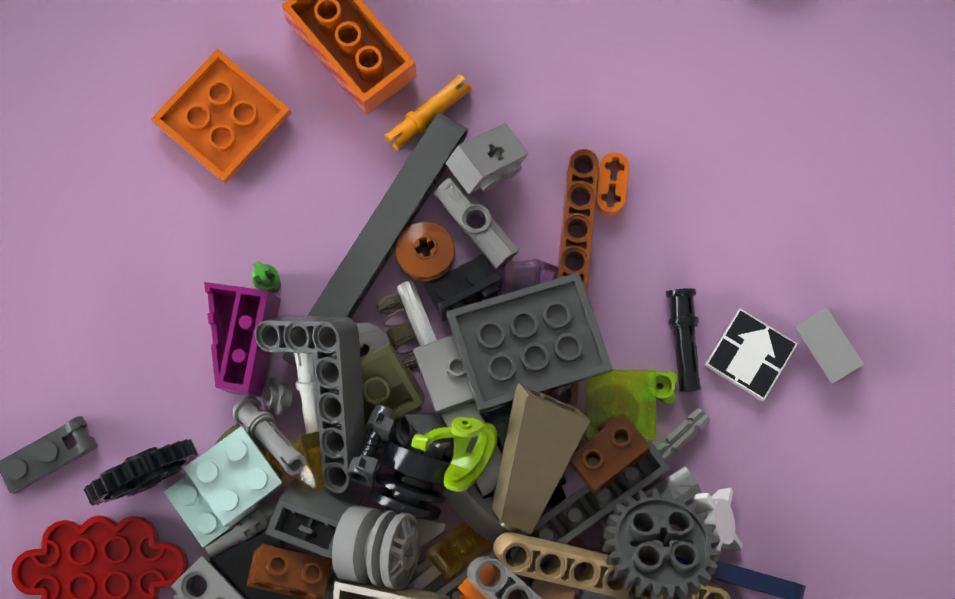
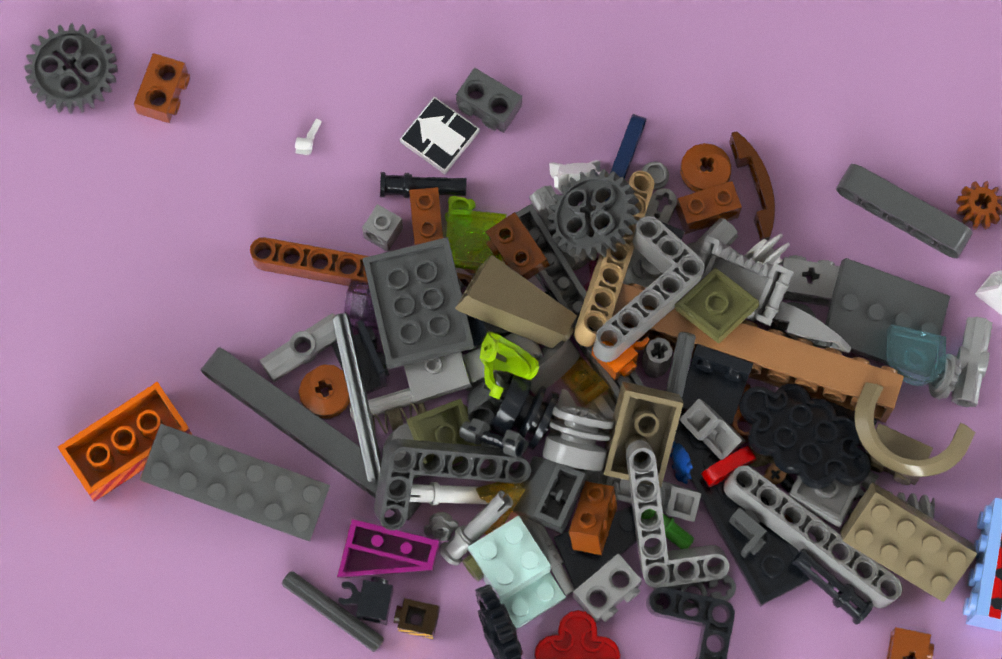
camera: 85 degrees left, 5 degrees down
(156, 384) = (428, 613): none -> dark brown brick
(175, 285) = (332, 611): none -> dark grey axle
(187, 326) = (372, 602): none -> black brick
(221, 116) = (180, 563): orange plate -> none
(265, 277) = (337, 527): bright green axle -> none
(304, 156) = (234, 482): none -> dark grey brick
(418, 120) = (204, 390): light orange pin -> none
(418, 285) = (358, 396): none -> axle
(487, 158) = (250, 330): light grey brick -> none
(619, 185) = (280, 225): orange beam -> none
(627, 297) = (382, 228): none -> light grey brick
(642, 346) = (426, 215): none -> dark orange brick
(683, 434) = (500, 194): light grey axle -> none
(719, 202) = (305, 145): none -> white hand
(767, 26) = (155, 87): none -> dark orange brick
(808, 413) = (493, 95): none -> dark grey brick
(829, 345) = (438, 71): light grey hinge -> none

